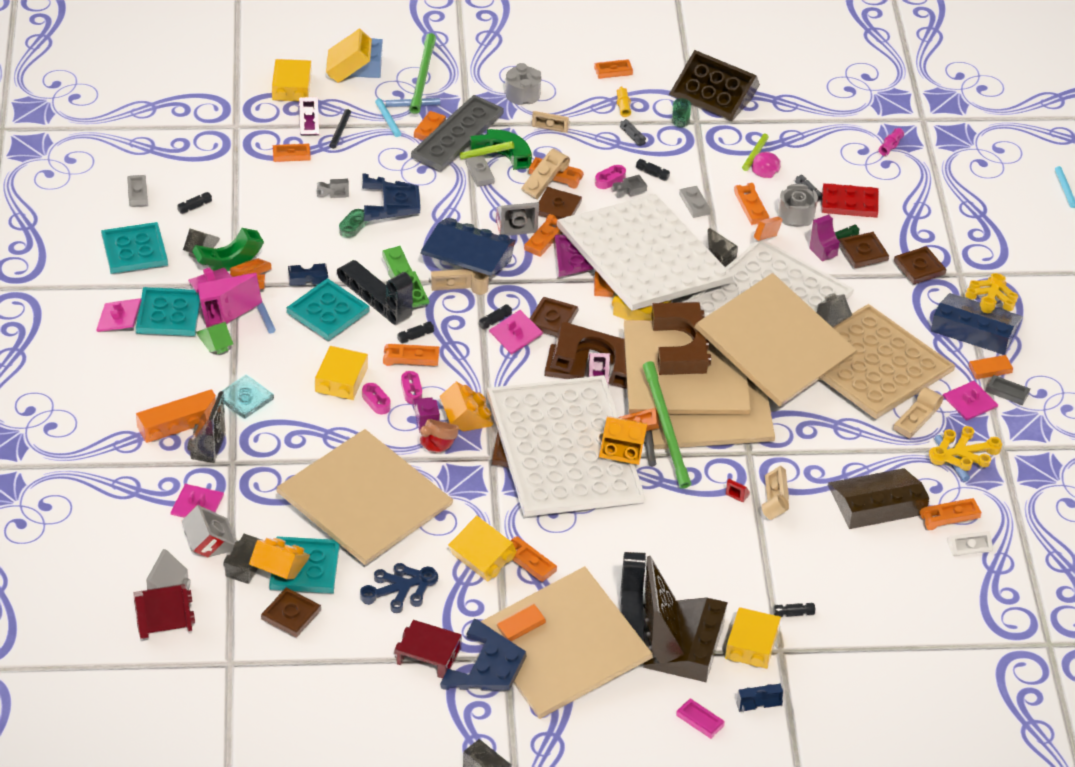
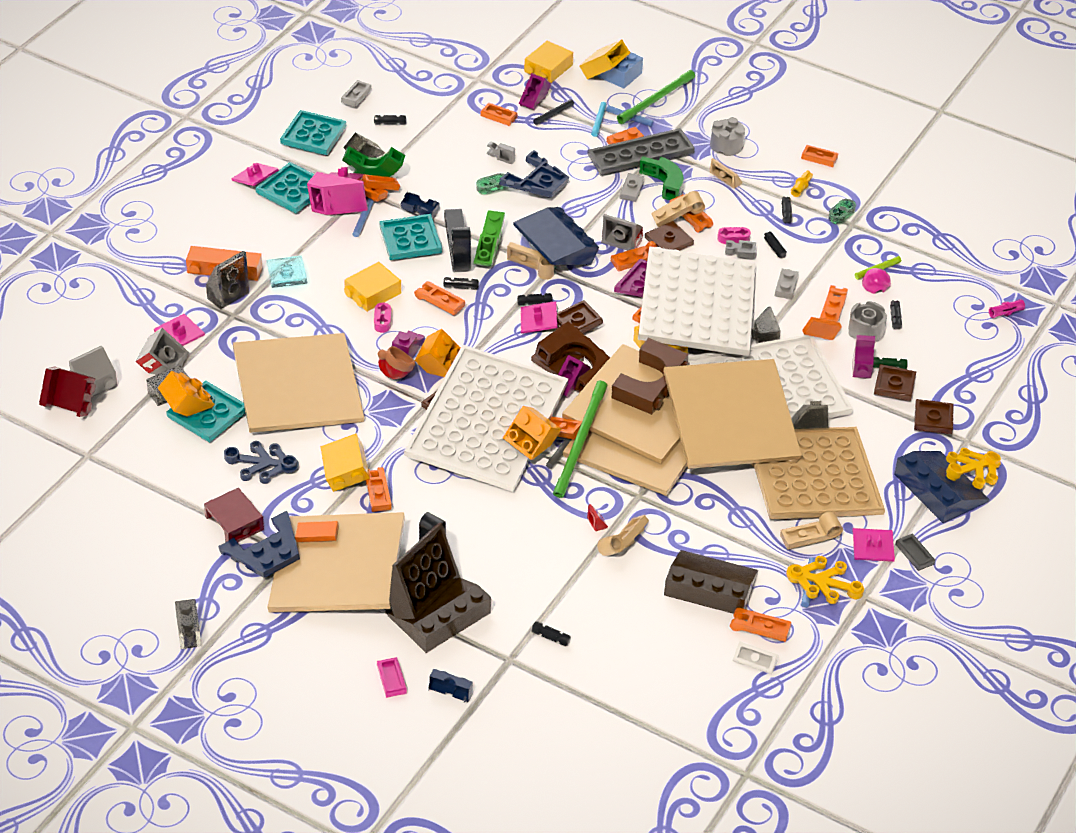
camera: 35 degrees right, 0 degrees up
(216, 337) = (305, 220): bright green slope -> none
(291, 612) = (163, 440): reddish brown plate -> none
(408, 387) = (420, 322): dark pink beam -> none
(487, 150) = (646, 172): lime bar -> none
(715, 85) = (890, 202): dark brown slope -> none
(752, 637) = (492, 637): yellow brick -> none
(850, 200) = (924, 339): red plate -> none
(990, 366) = (918, 526): orange tile -> none

